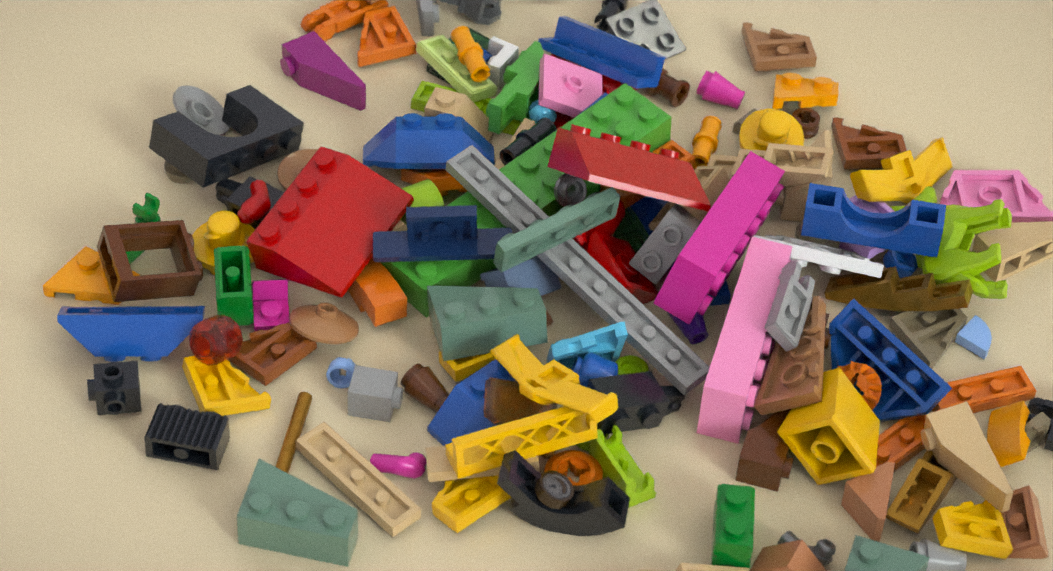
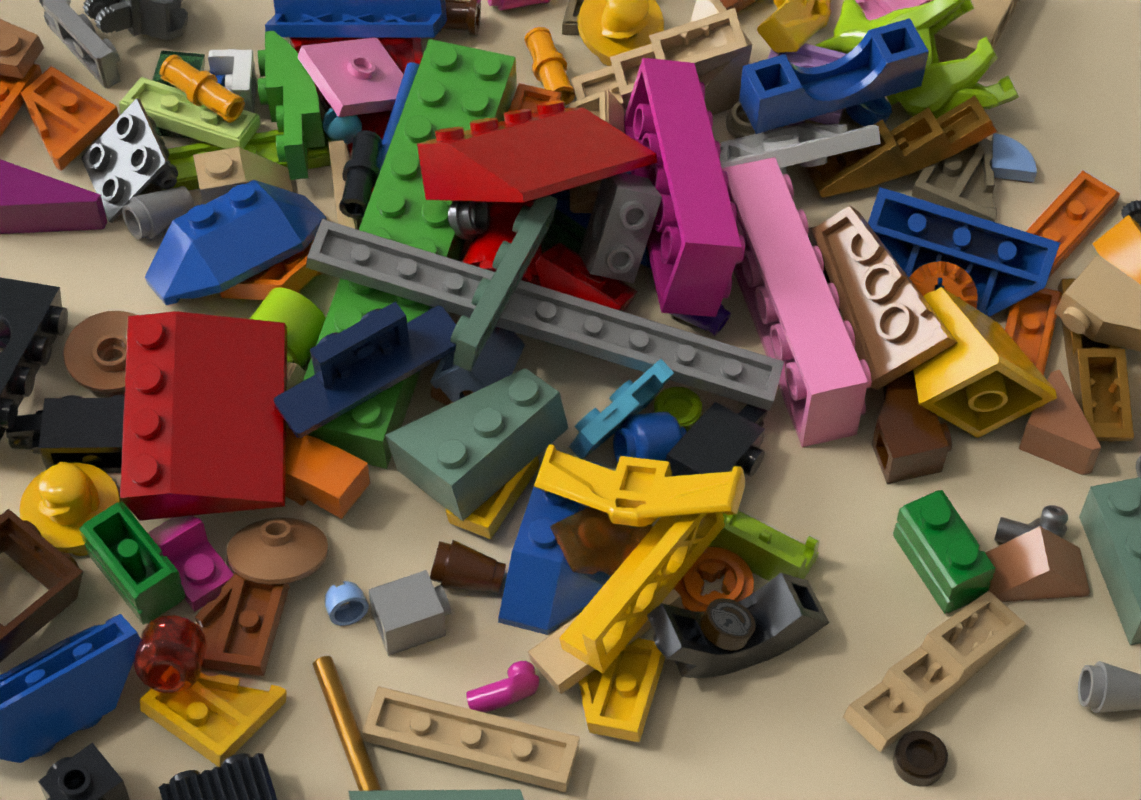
camera: 30 degrees left, 10 degrees up
(256, 205) = (88, 436): red arm -> none
(389, 108) = (153, 212): none -> light grey cone
(402, 74) = (128, 160): none -> dark grey hinge
(790, 306) = (830, 235): light grey hinge -> none

